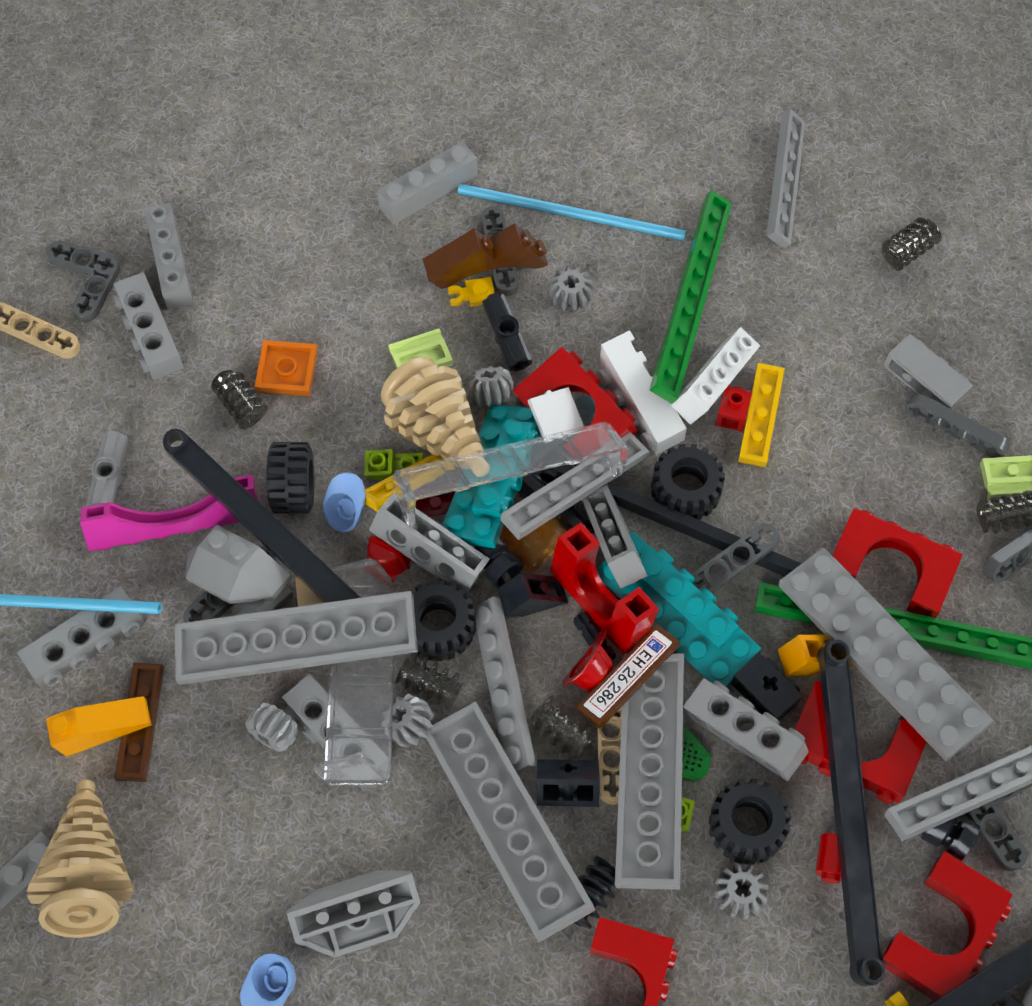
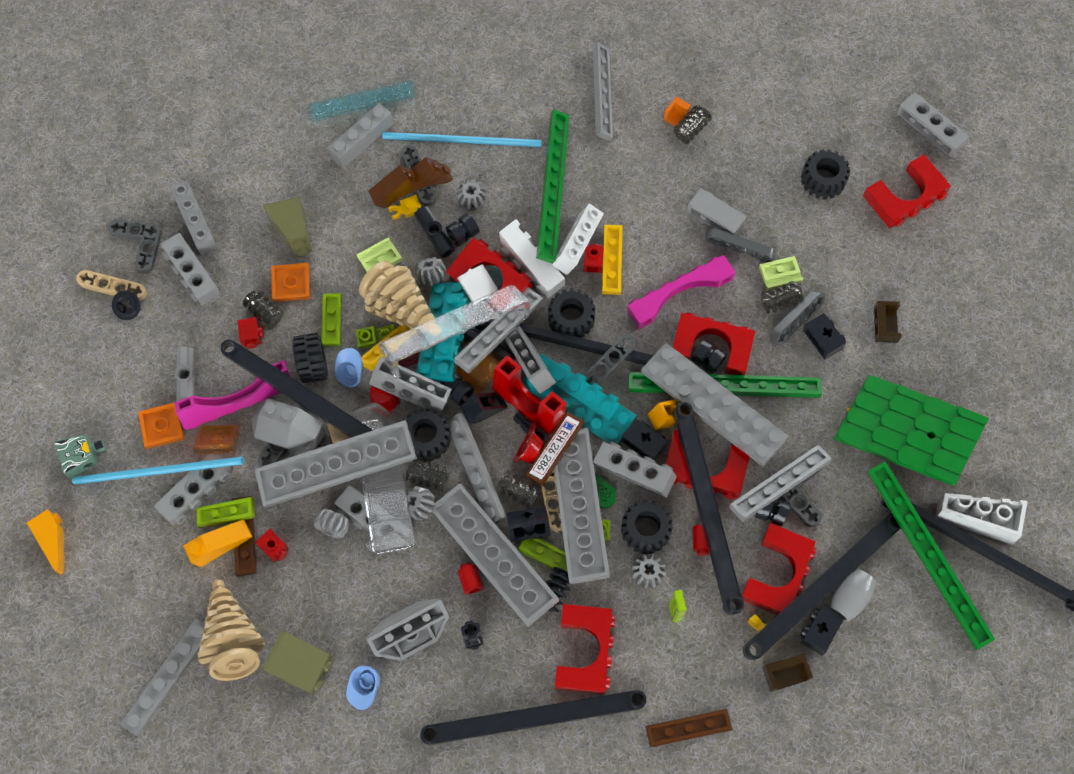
camera: 10 degrees left, 5 degrees up
(36, 364) = (120, 310): none -> black gear
(55, 539) = (160, 426): none -> orange plate
(120, 681) = (225, 512): none -> lime tile
(131, 571) = (216, 439): none -> clear orange tile
(176, 931) = (298, 663): none -> olive slope
(178, 744) = (272, 546): none -> red brick
(213, 428) = (250, 332): none -> red brick
(303, 286) = (291, 224): none -> olive slope
(334, 431) = (331, 320): none -> lime tile
(439, 137) = (362, 100): none -> clear light blue plate
(449, 938) = (472, 635): none -> black piece
(463, 850) = (470, 578): none -> red brick
(548, 335) = (462, 229): none -> black wheel
(584, 832) = (544, 553): none -> lime tile
(778, 955) = (677, 606): none -> lime tile
(885, 580) = (708, 356): none -> black wheel
(890, 221) = (676, 111): none -> orange panel
(910, 461) = (713, 274): none -> dark pink arch

